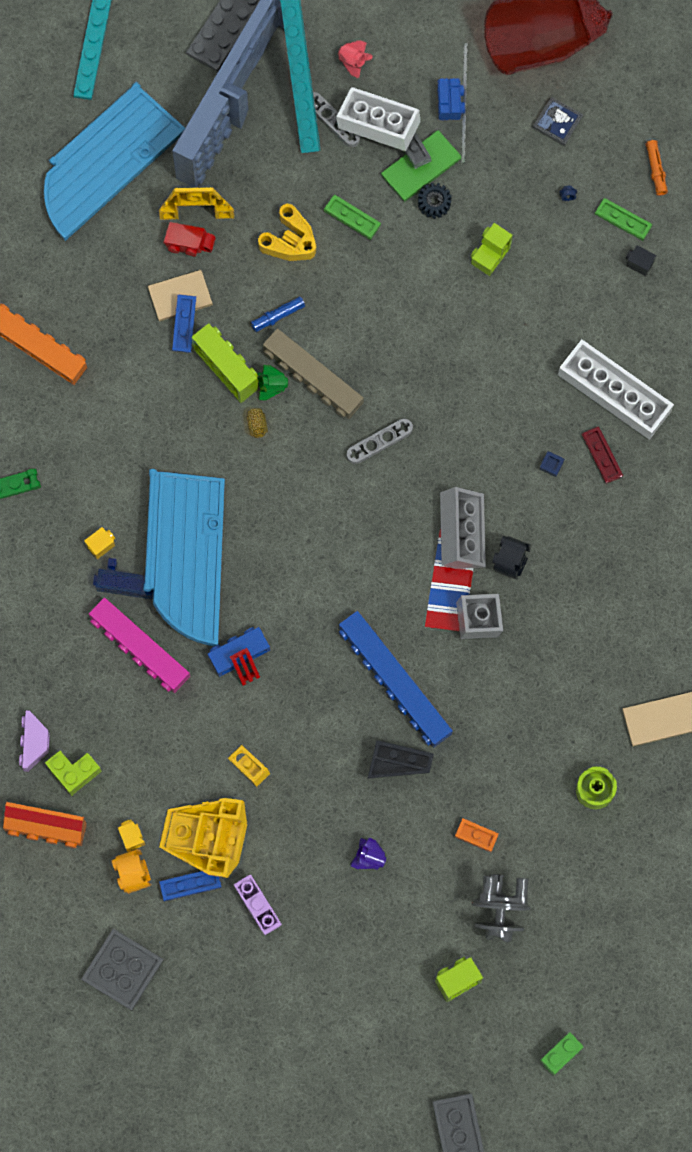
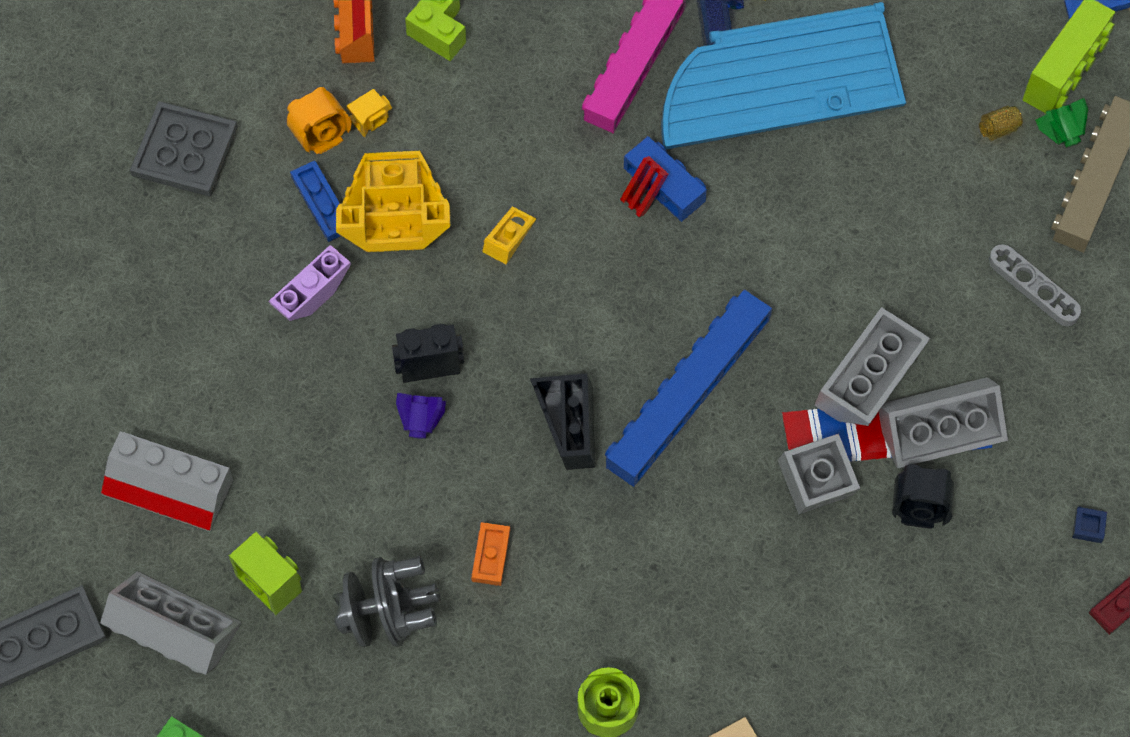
camera: 75 degrees right, 10 degrees down
(330, 832) = (428, 353): none -> black brick
(373, 1032) = (166, 481): none -> light grey slope
(417, 561) = (871, 369): none -> light grey slope
(472, 1049) = (169, 622): none -> light grey slope

